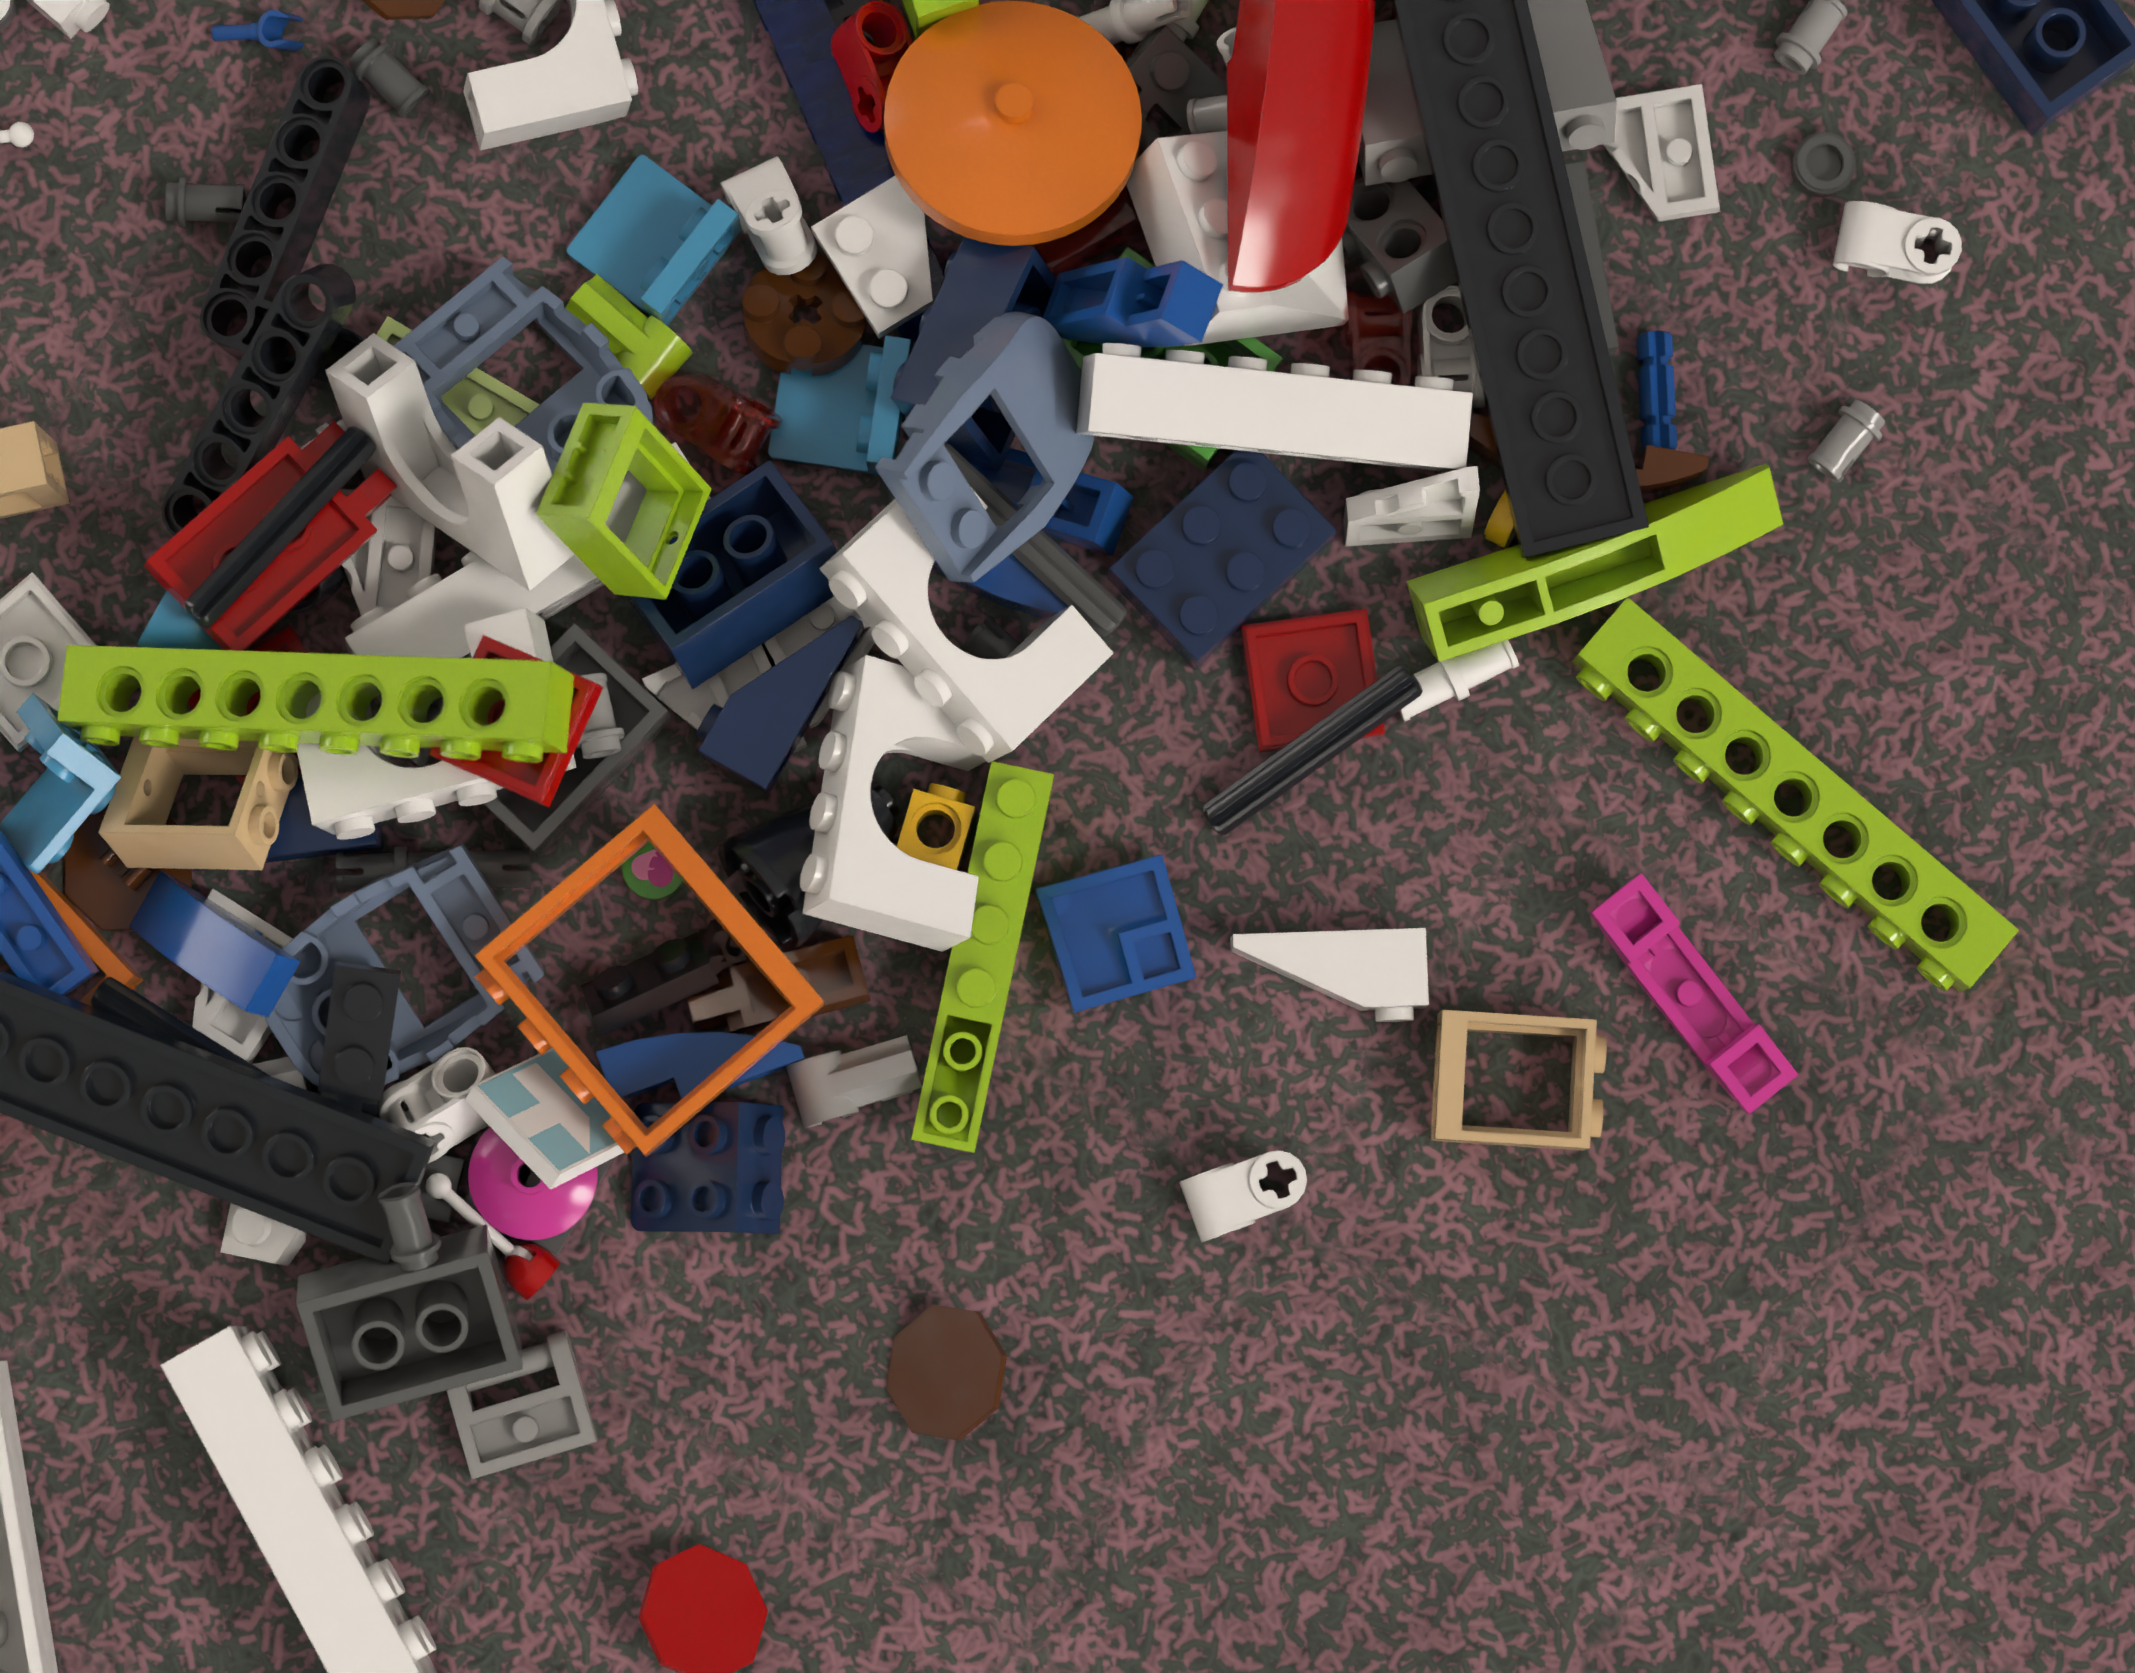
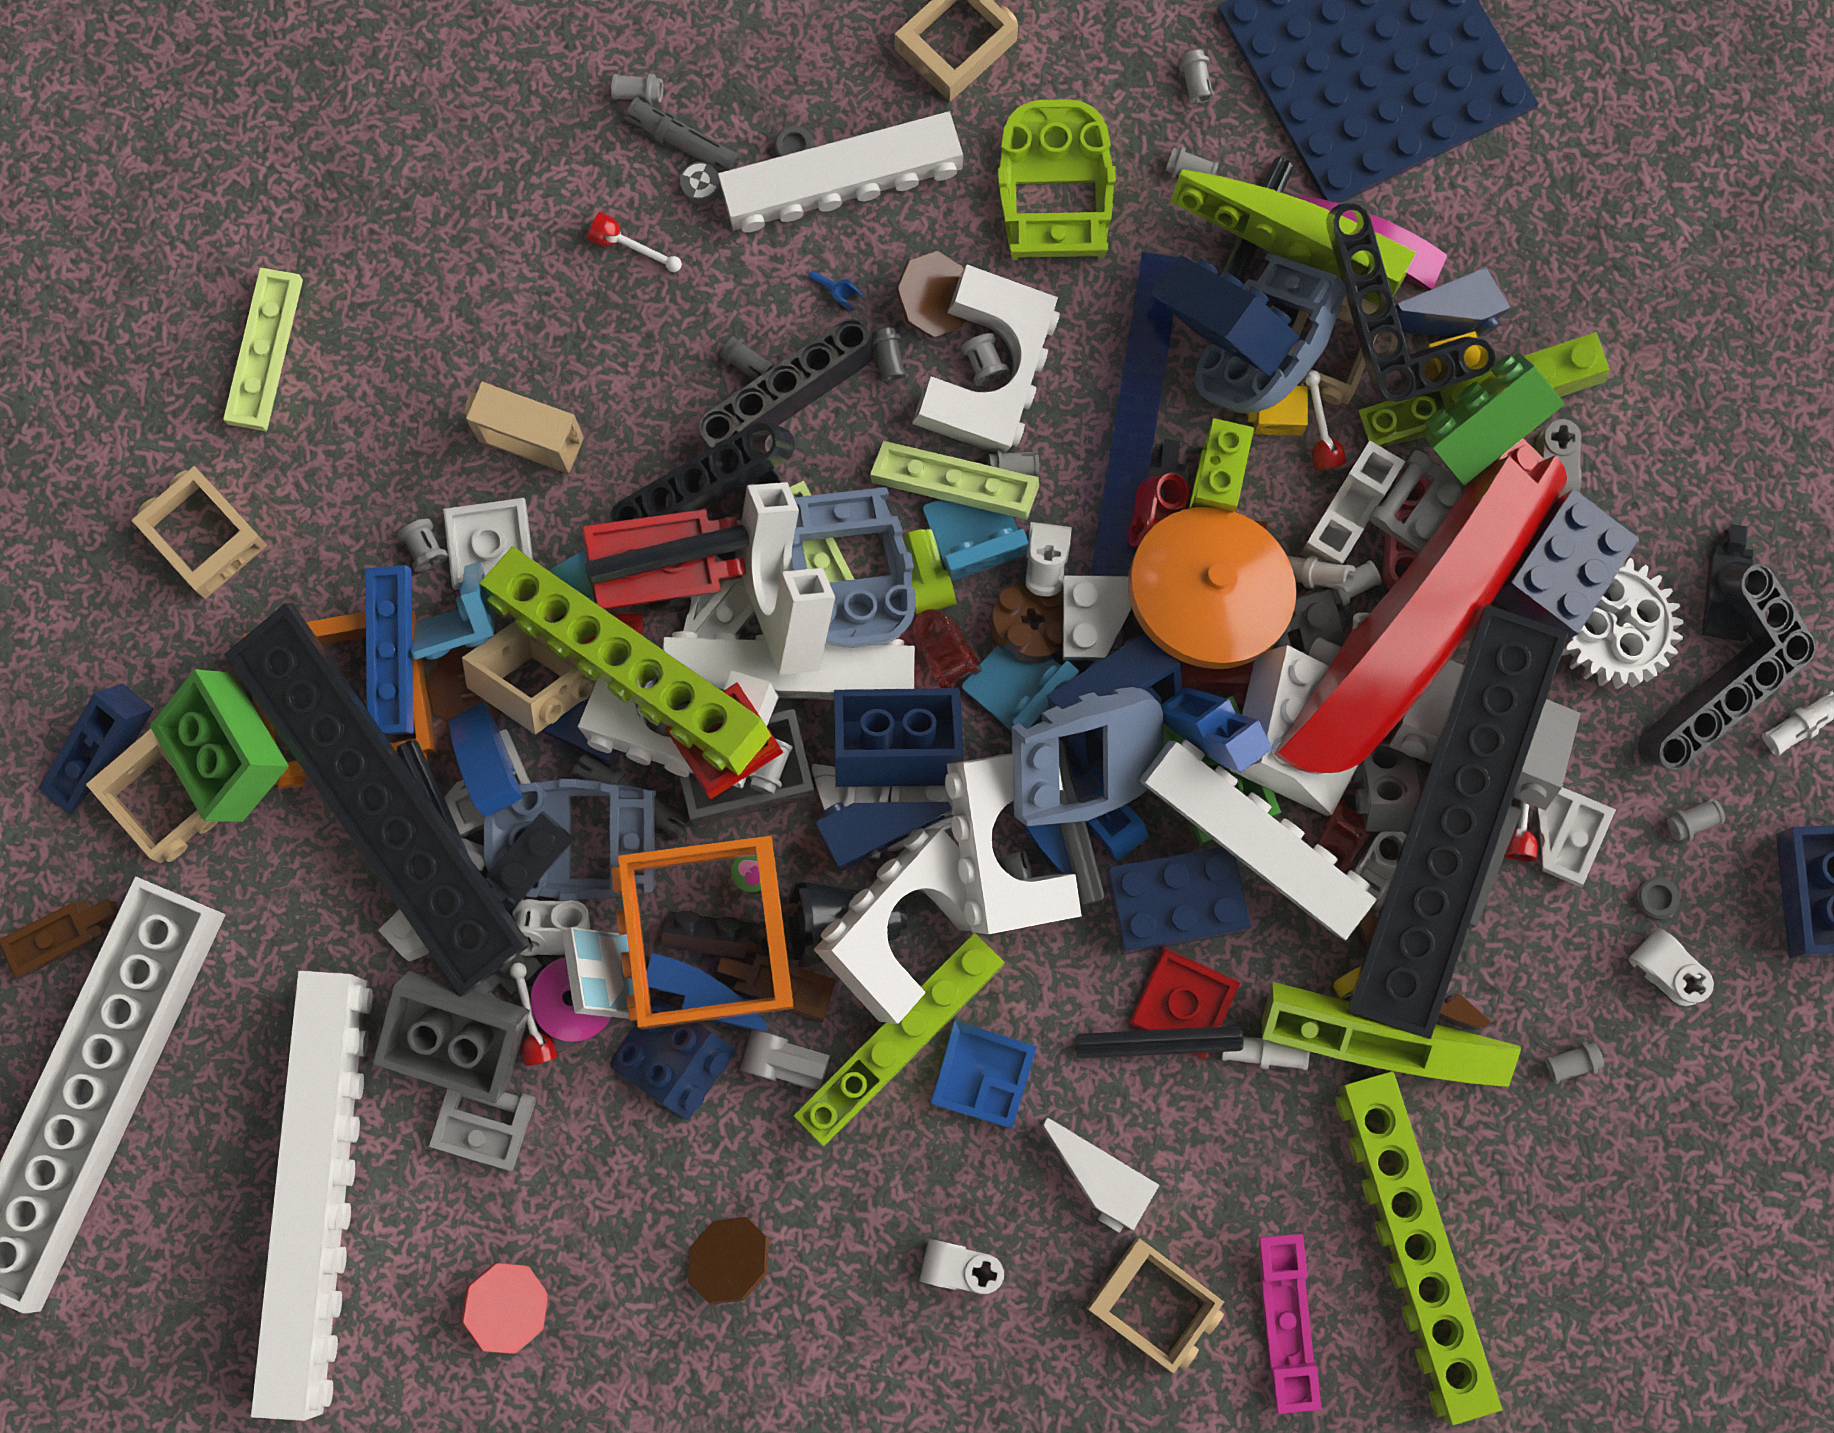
camera: 40 degrees right, 5 degrees down
(412, 1238) = (483, 983): dark grey pin -> none
(585, 486) = (848, 633): lime window -> none
(586, 190) = (955, 480): none -> yellowish green plate
(647, 121) = (1018, 462): none -> light grey pin
(937, 801) = (933, 937): yellow brick -> none
(1414, 511) = (1302, 945): white wing -> none
(1609, 198) = (1522, 841): none -> red hinge
(1656, 389) = (1483, 964): blue axle -> none

